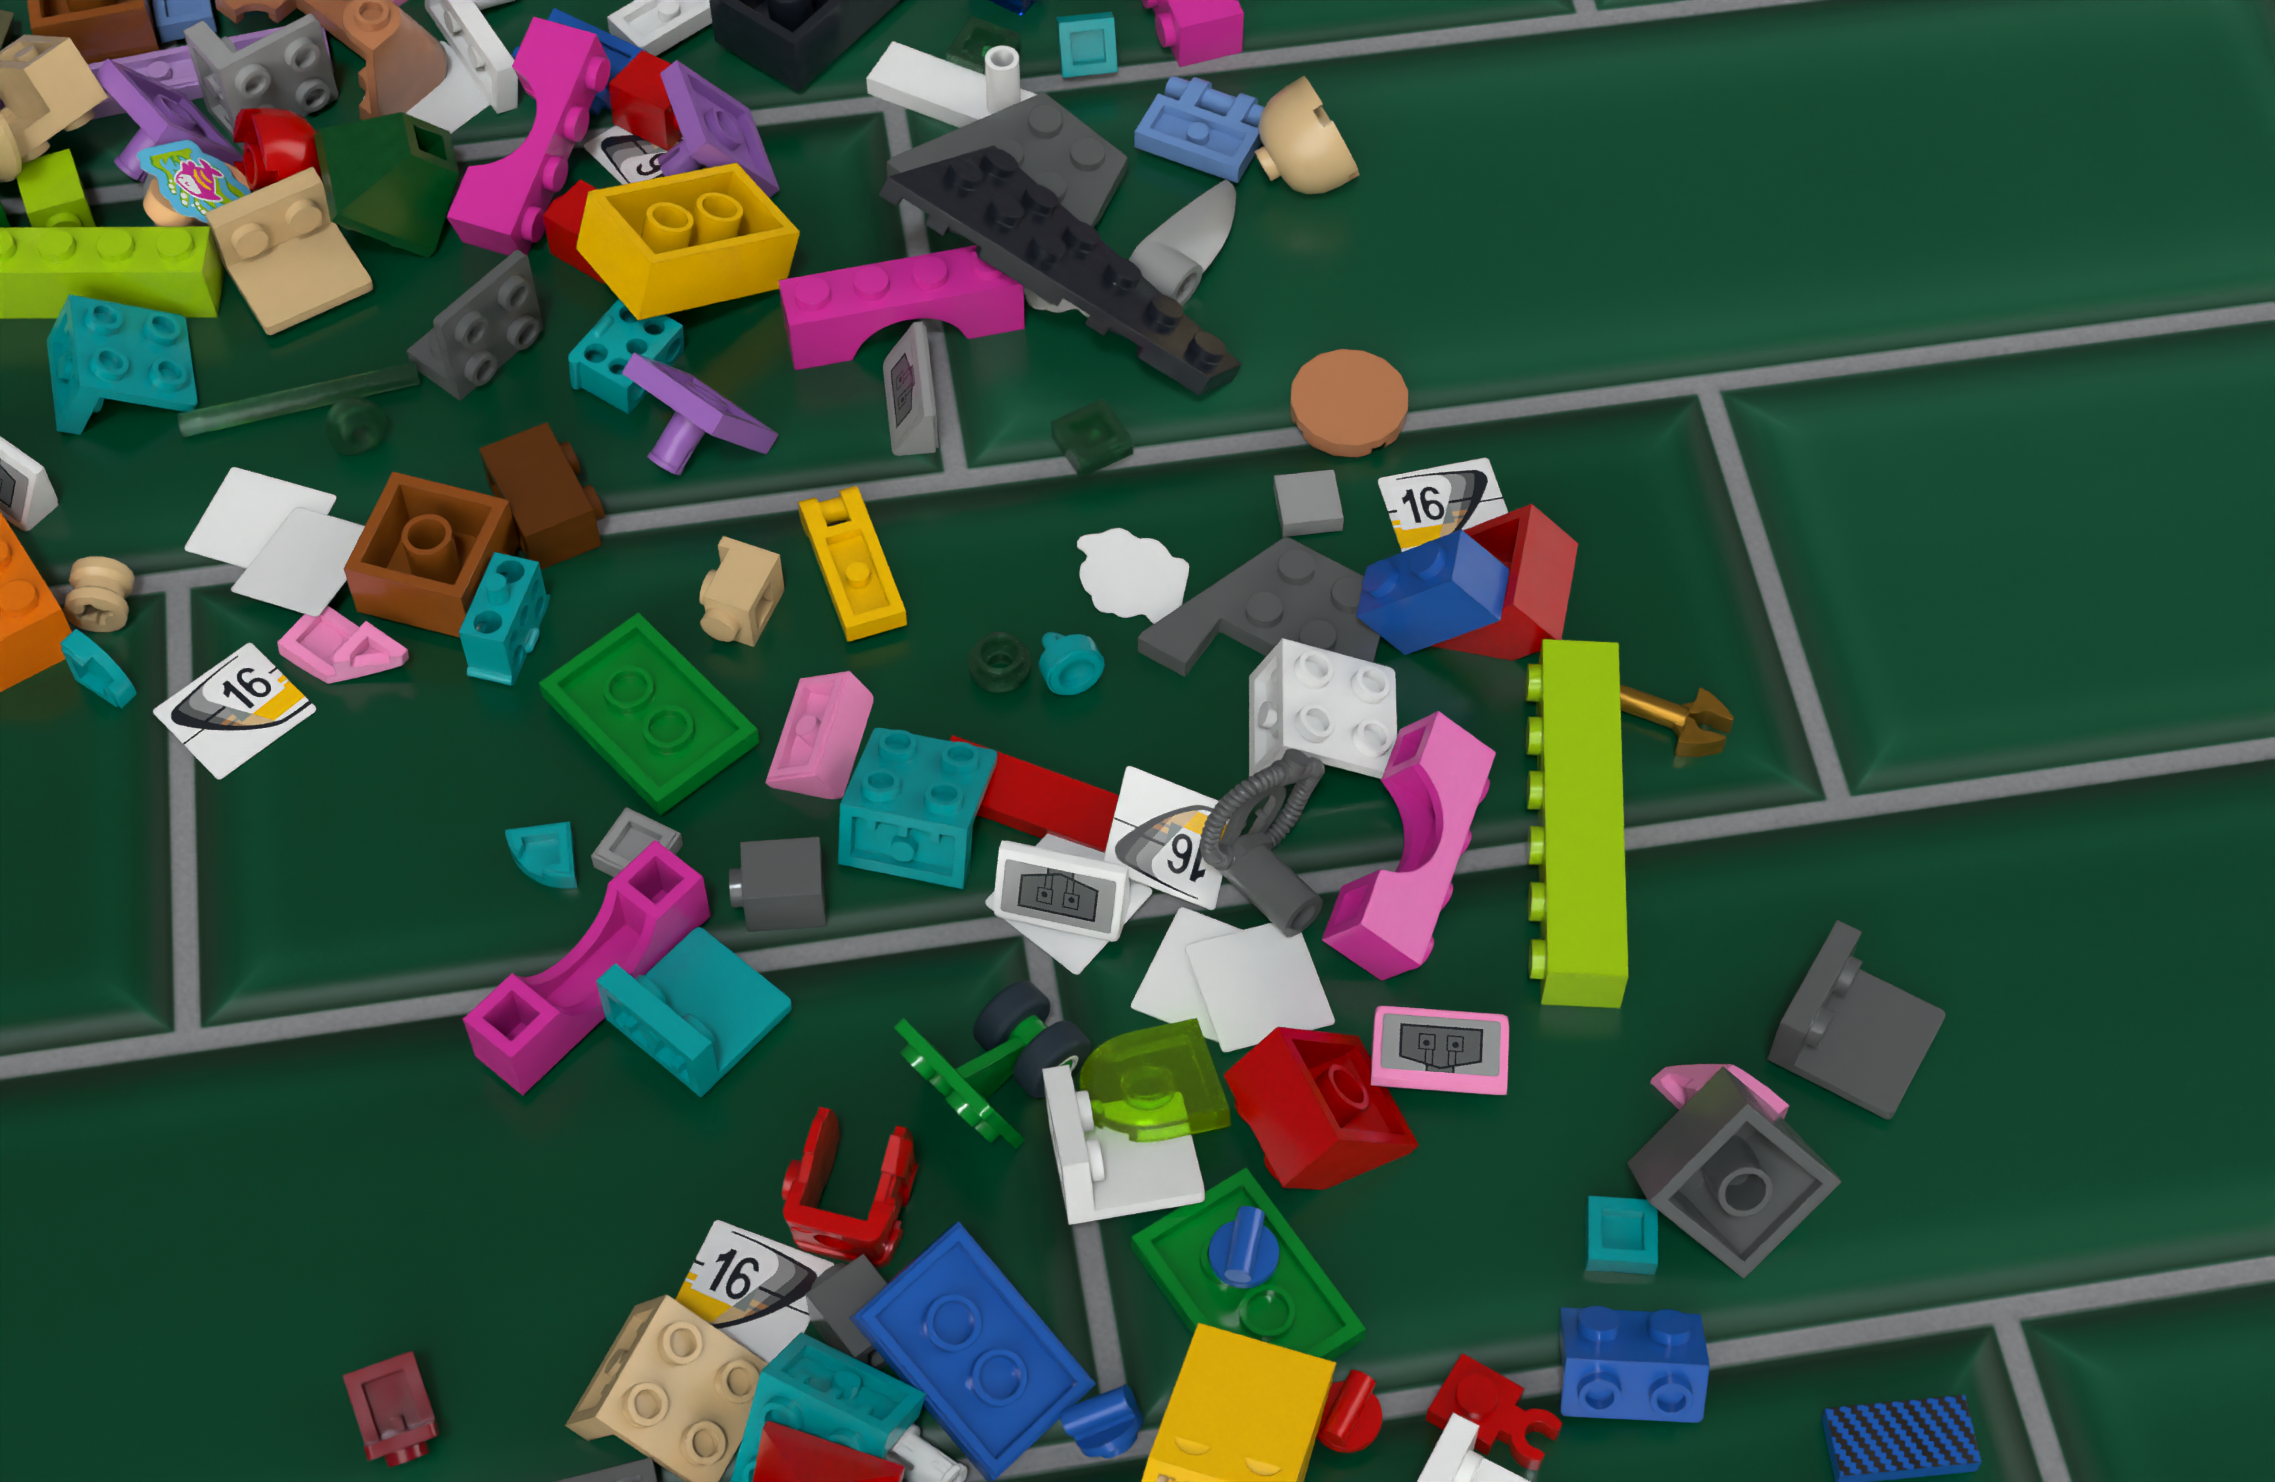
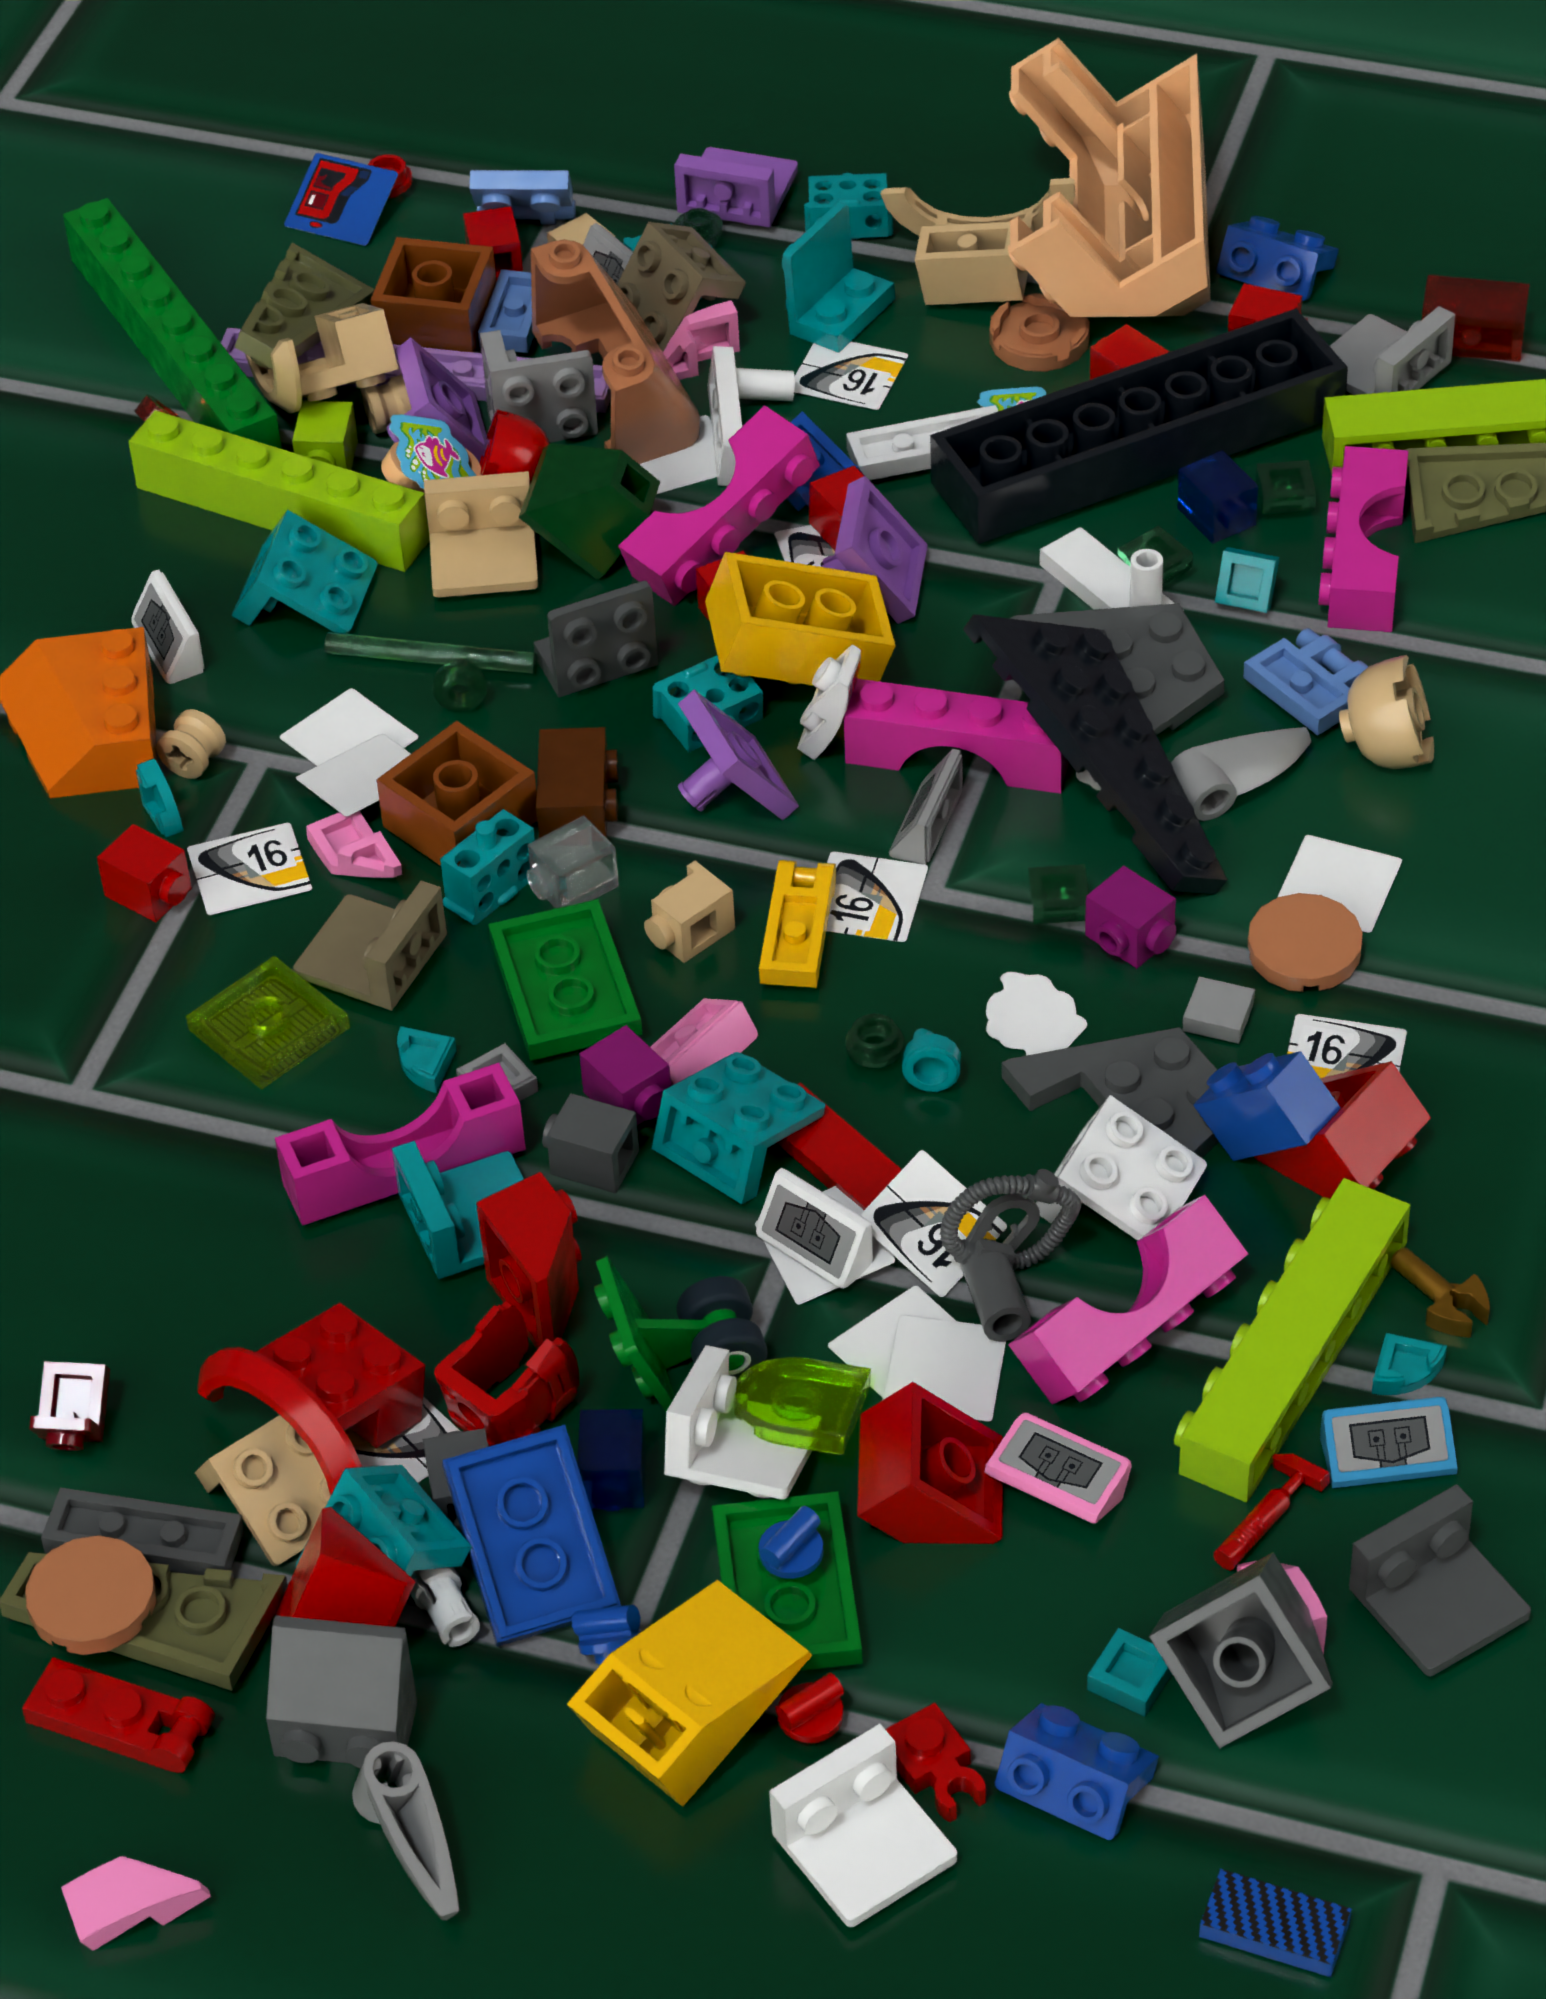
camera: 30 degrees right, 10 degrees down
(101, 137) = (384, 401): none -> tan wheel
(130, 761) = (144, 873): none -> red brick
(355, 878) = (268, 1022): none -> clear neon green tile
(426, 753) = (375, 948): none -> dark tan bracket
(589, 584) = (572, 864): none -> clear brick
(671, 1274) = (326, 1380): none -> red piece
(766, 323) = (826, 711): none -> white slope
(782, 798) = (625, 1074): none -> magenta brick
(800, 1040) = (532, 1253): none -> red slope
(906, 502) = (874, 896): none -> sticker
(1003, 1223) = (613, 1458): none -> clear blue brick
(1178, 438) = (1130, 917): none -> magenta brick
(1337, 319) = (1344, 874): none -> white sticker
(1649, 1007) = (1270, 1508): none -> red piece
(1685, 804) = (1406, 1364): none -> teal tile
(1720, 894) = (1388, 1442): none -> slope

